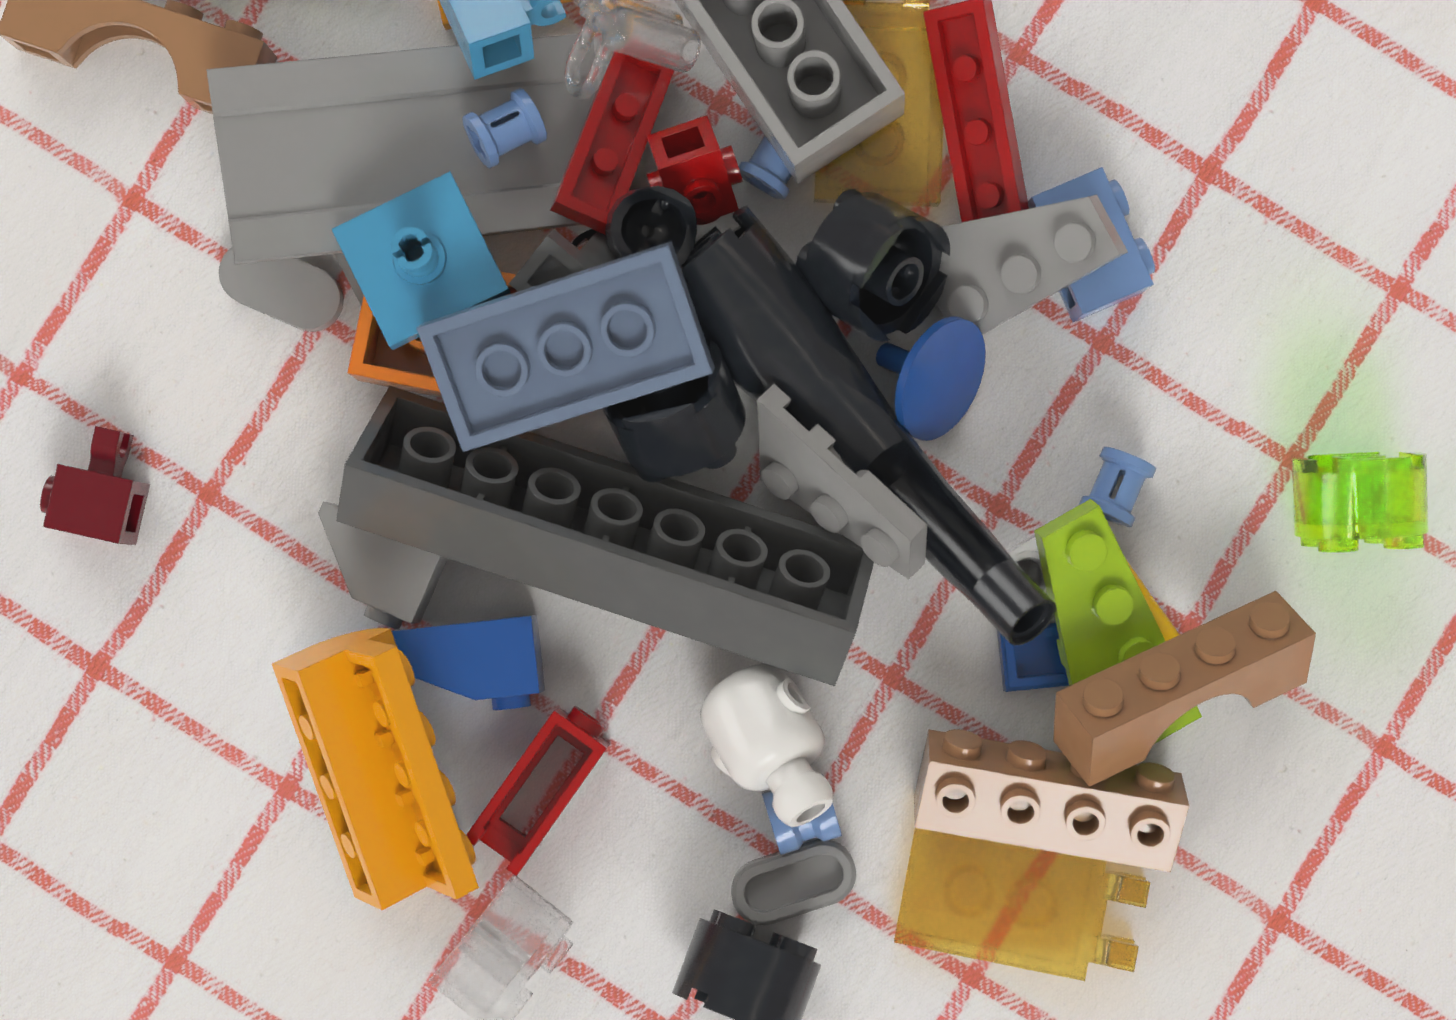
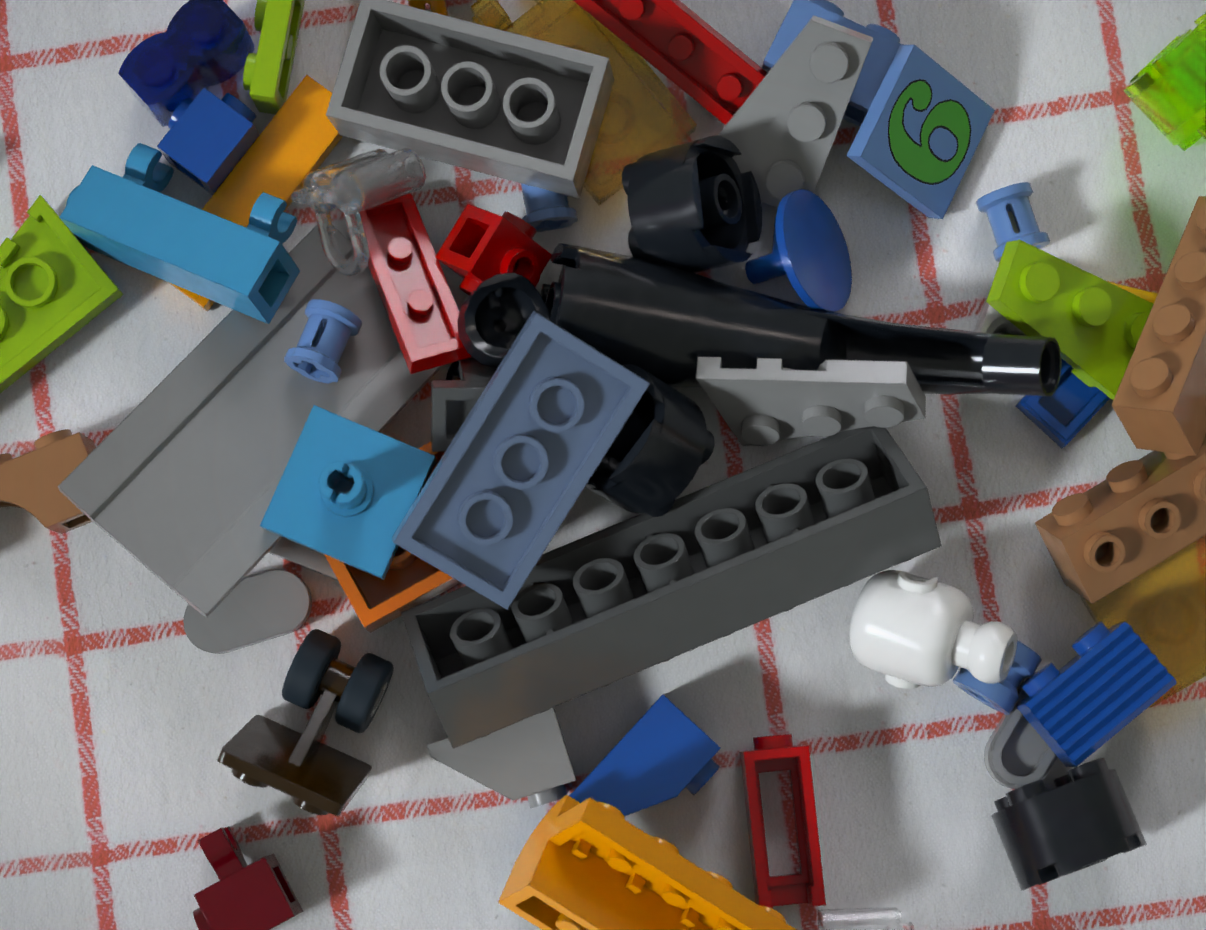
camera: 40 degrees left, 5 degrees down
(219, 434) = (298, 763): none -> dark brown plate
(857, 894) = (1094, 692): none -> blue brick
(1106, 356) = (920, 132): none -> medium blue tile

